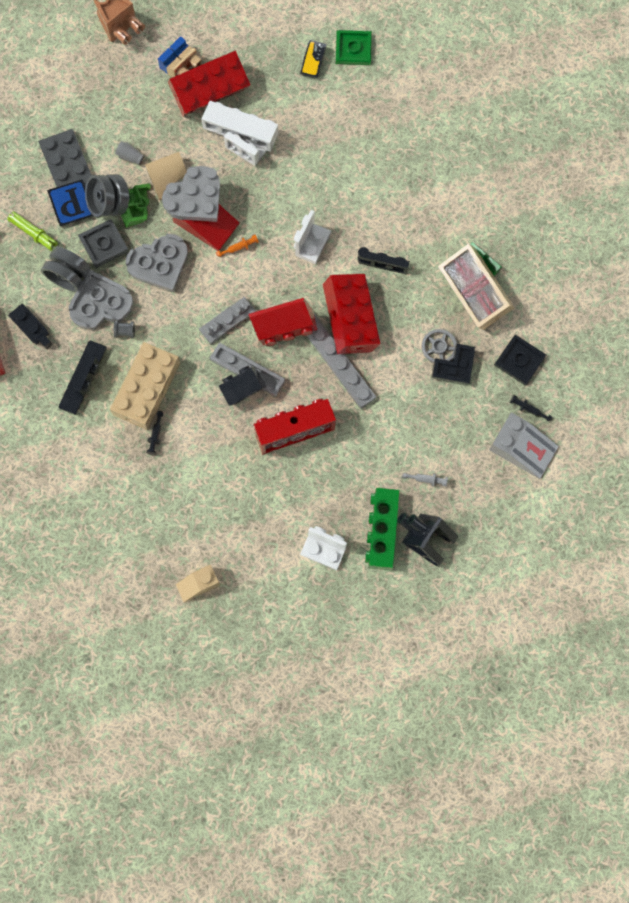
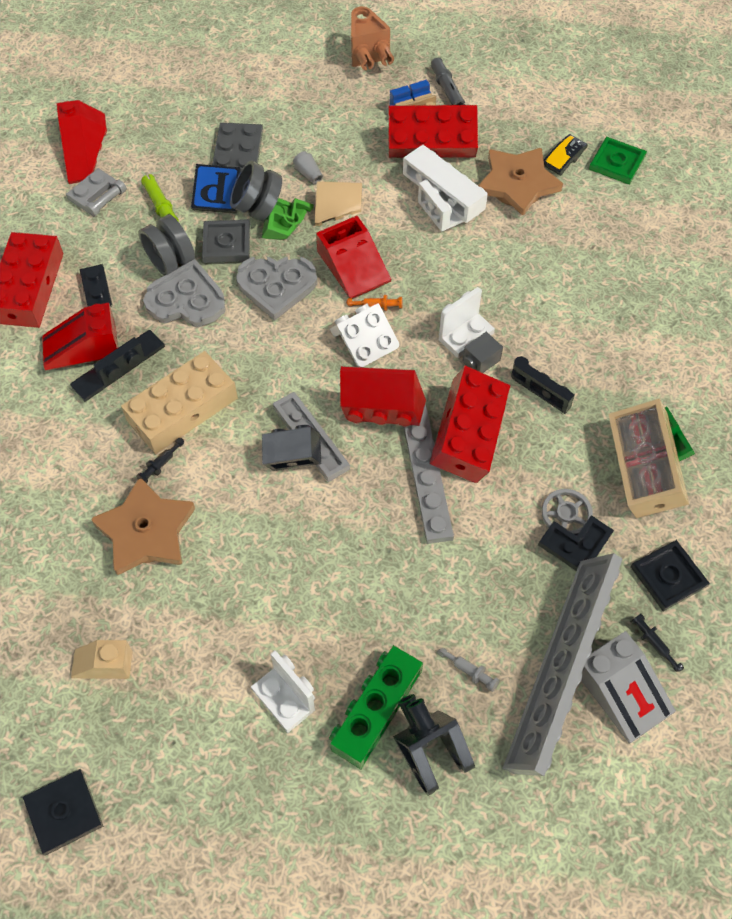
camera: 30 degrees right, 15 degrees down
(45, 370) = (81, 338): none -> red slope
(124, 329) = (194, 334): dark grey bush -> none
(177, 499) = (144, 528): none -> medium nougat plate
(190, 25) = (444, 77): none -> dark grey pin
(195, 196) = (352, 226): light grey plate -> none
(227, 320) = (314, 374): light grey plate -> none
(228, 681) = (62, 812): none -> black plate
(244, 275) = (366, 334): none -> white bracket
(290, 97) = (519, 179): none -> medium nougat plate
(294, 426) = (328, 521): red brick -> none
(332, 255) = (482, 353): none -> dark grey brick
(483, 450) = (562, 667): none -> light grey plate

